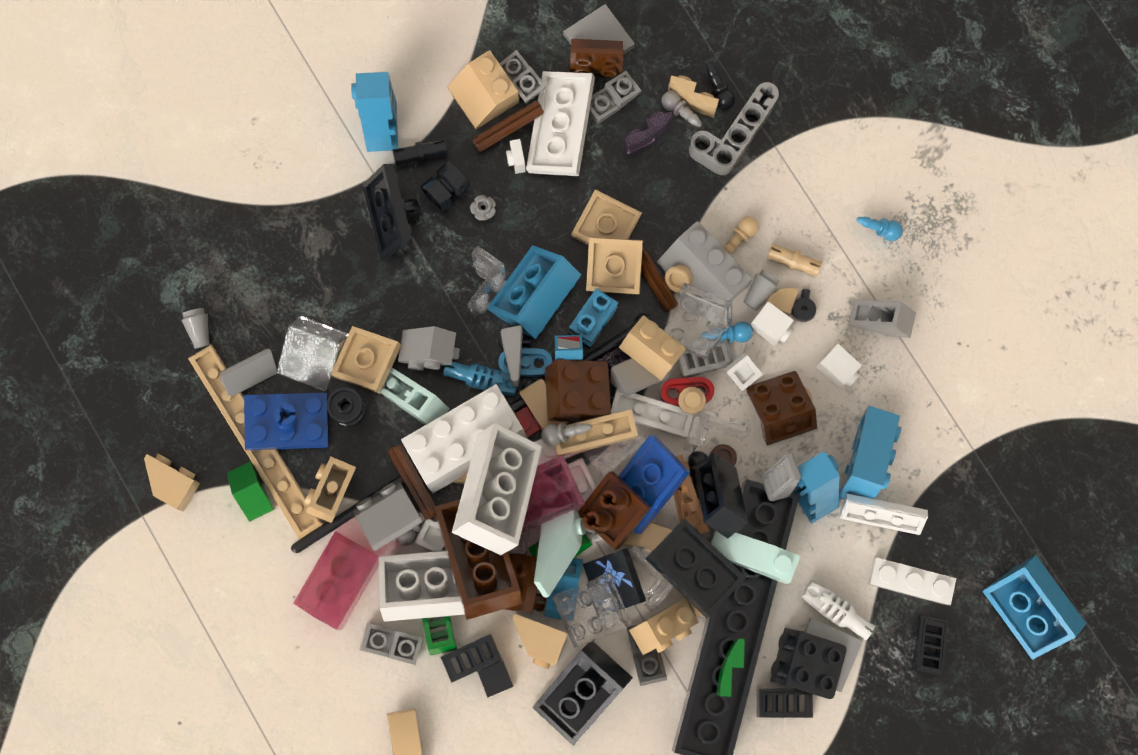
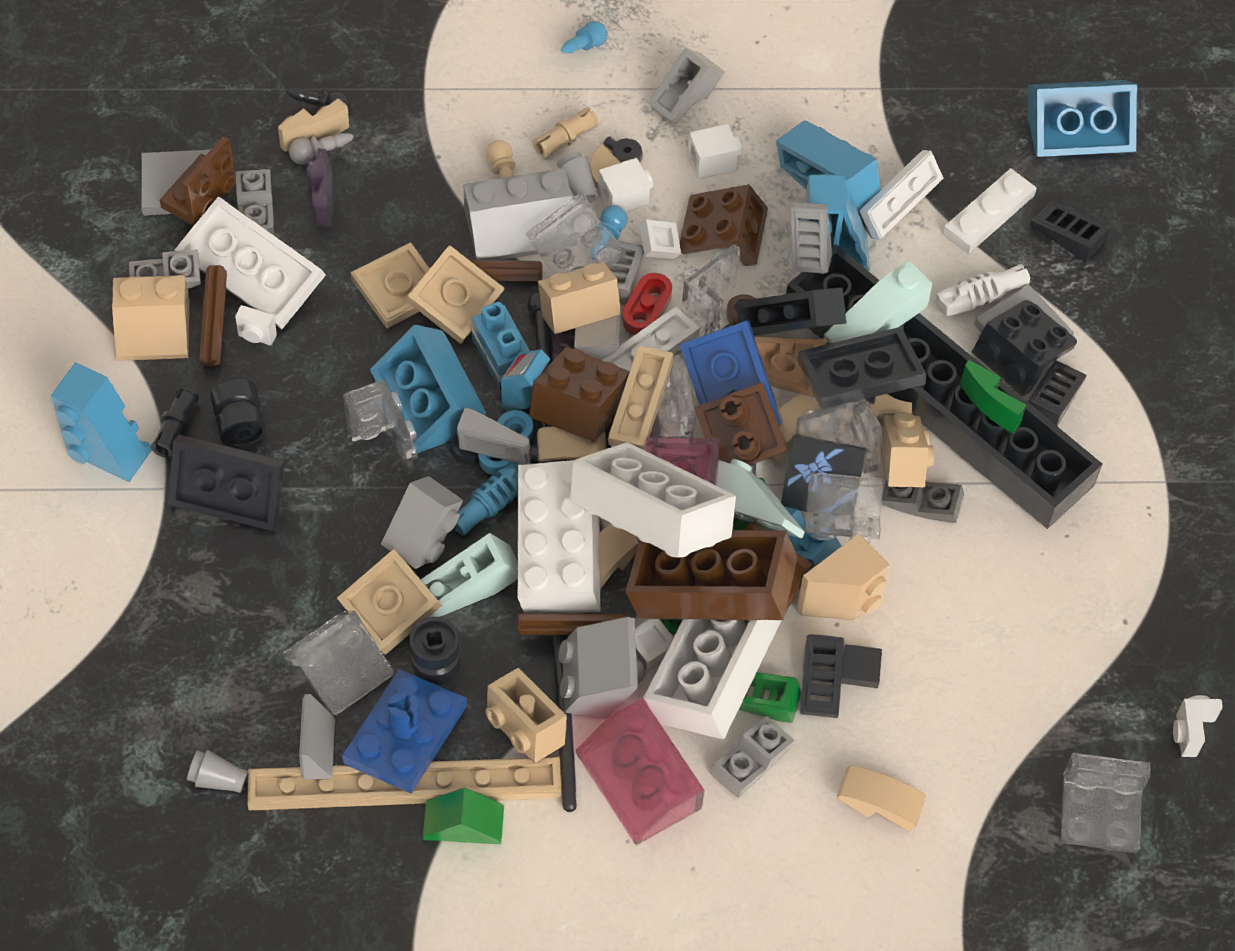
camera: 60 degrees left, 20 degrees down
(169, 484) = (394, 904): tan slope -> none
(488, 212) = (291, 401): light grey plate -> none
(554, 434) = (619, 430): light grey bar -> none
(582, 692) = (932, 580): black slope -> none
(677, 276) = (512, 243): tan tile -> none
(691, 400) = (662, 297): tan plate -> none
(740, 127) = (399, 128): light grey beam -> none

